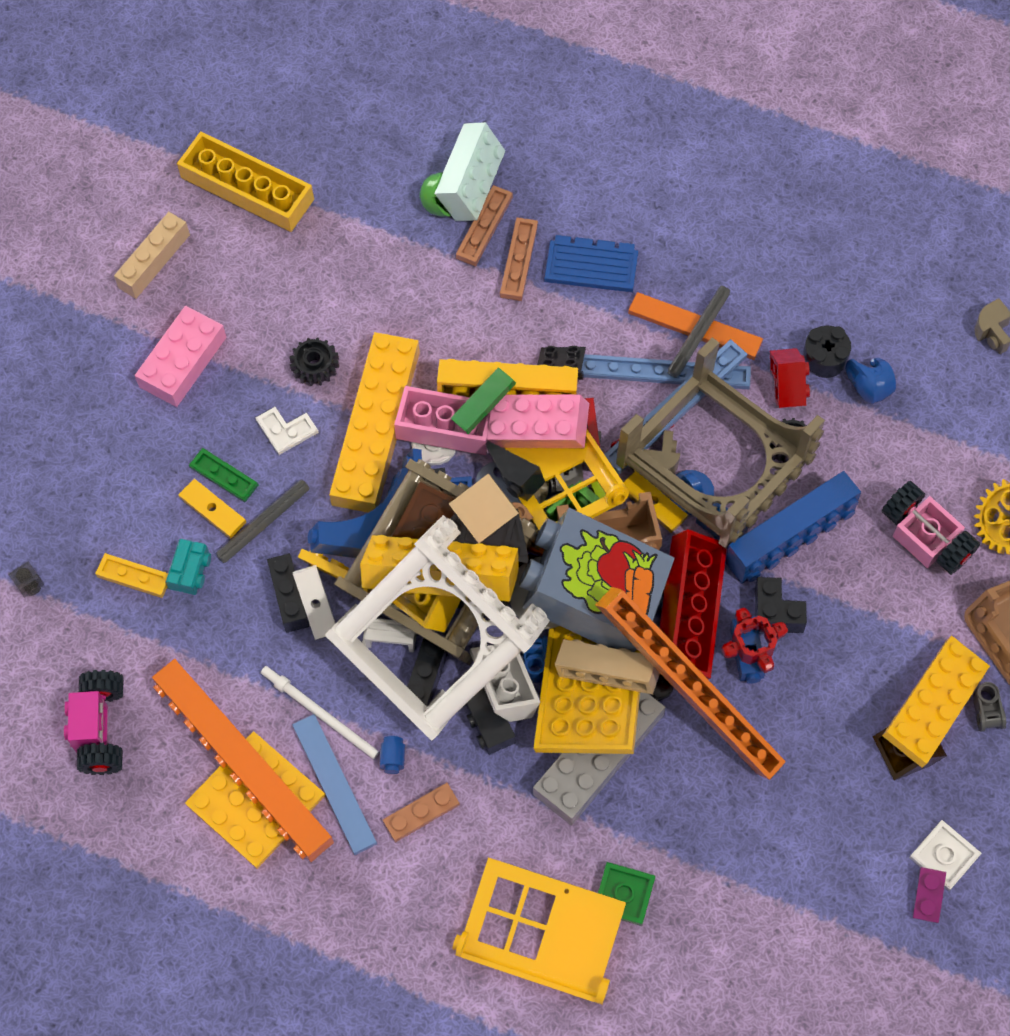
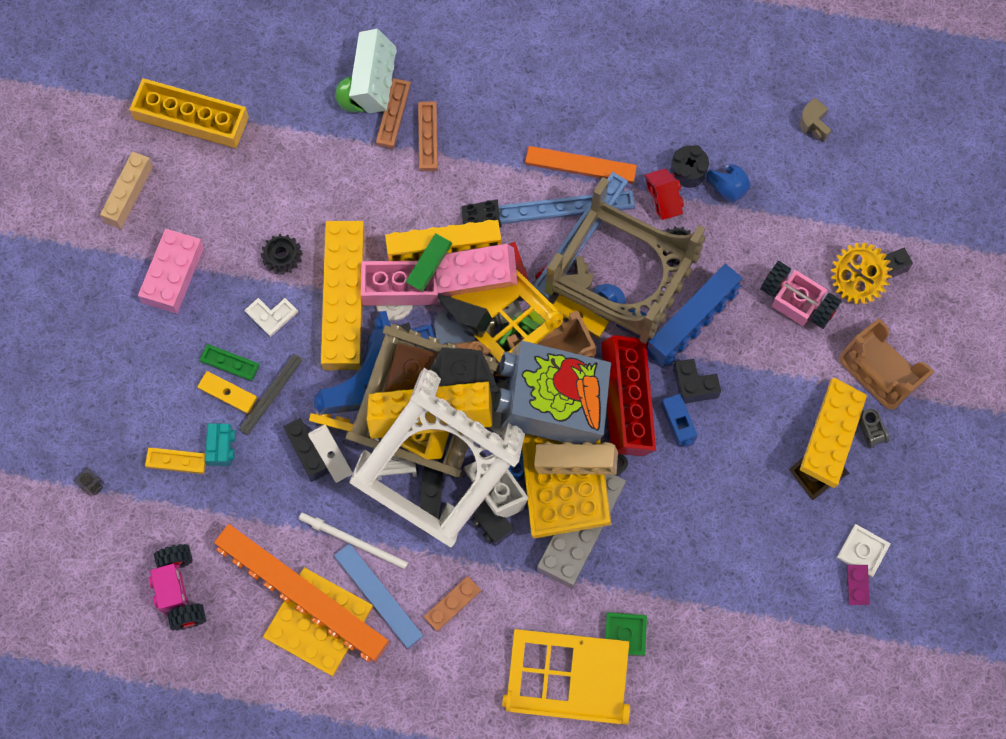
camera: 15 degrees left, 5 degrees up
(392, 754) = (419, 563): blue brick -> none
(483, 508) = (454, 355): tan tile -> none
(590, 264) = (487, 130): blue hinge -> none
(690, 682) = (644, 459): orange brick -> none
(698, 331) = (585, 169): dark grey axle -> none
(745, 625) = (696, 406): red piece -> none

